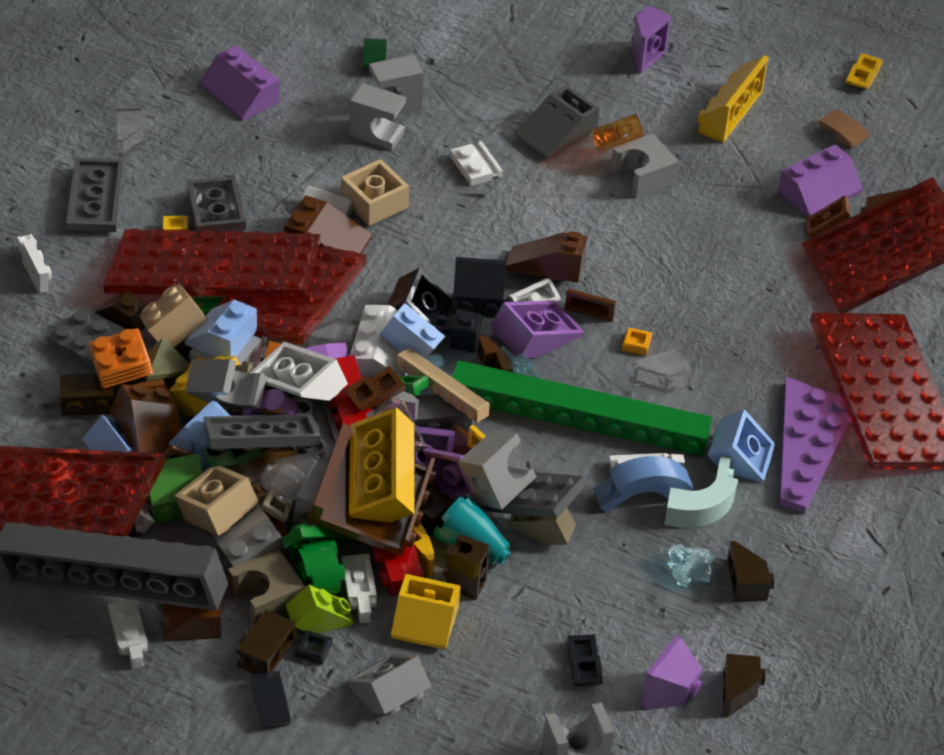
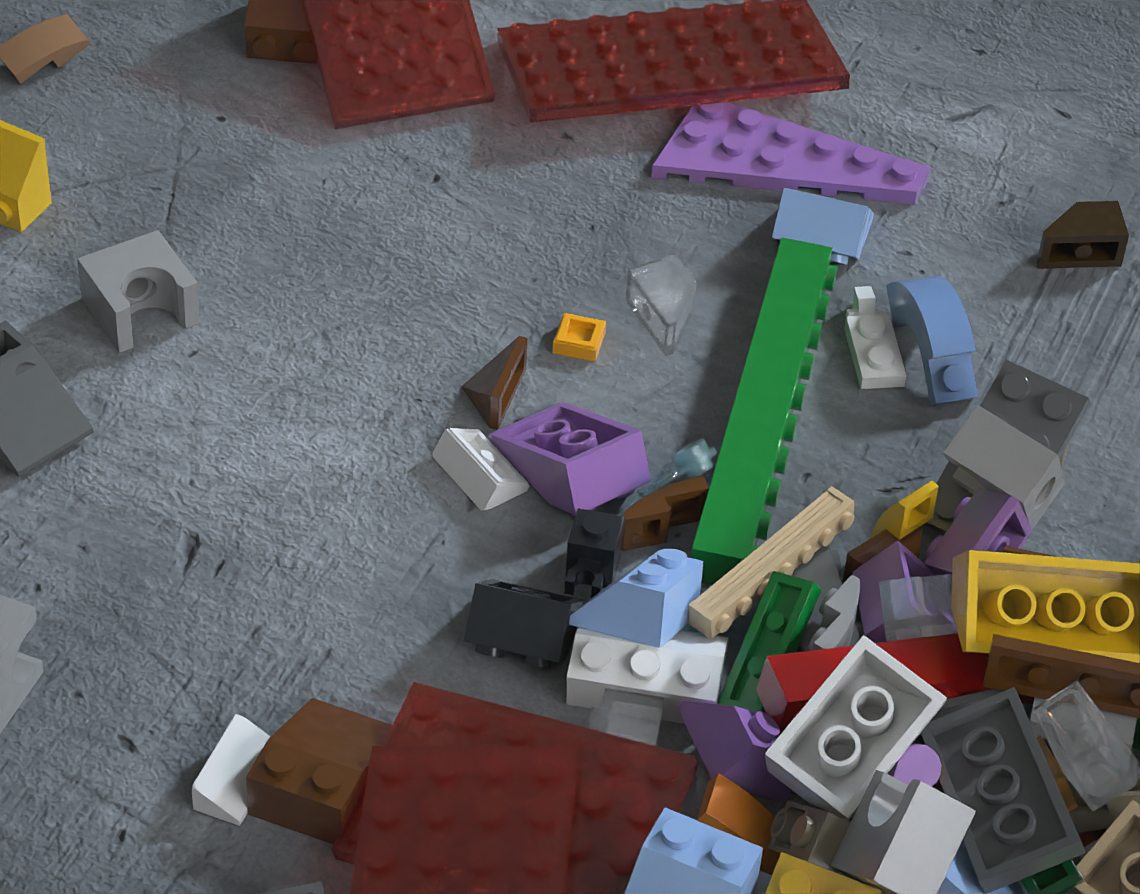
camera: 90 degrees left, 0 degrees up
(375, 192) = (216, 672): tan brick -> none
(376, 390) = (844, 620): reddish brown slope -> none
(470, 520) = (1090, 532): teal cone -> none
(475, 163) = (101, 536): white plate -> none
(479, 285) = (497, 522): black slope -> none
(550, 257) = (397, 423): reddish brown slope -> none
(611, 134) = (63, 307): clear orange brick -> none
(692, 565) = (1073, 302): clear light blue plate -> none
(703, 506) = (932, 252): light aqua arch -> none
(820, 180) = (178, 88): medium lavender slope -> none
(828, 217) = (274, 78): dark orange slope -> none

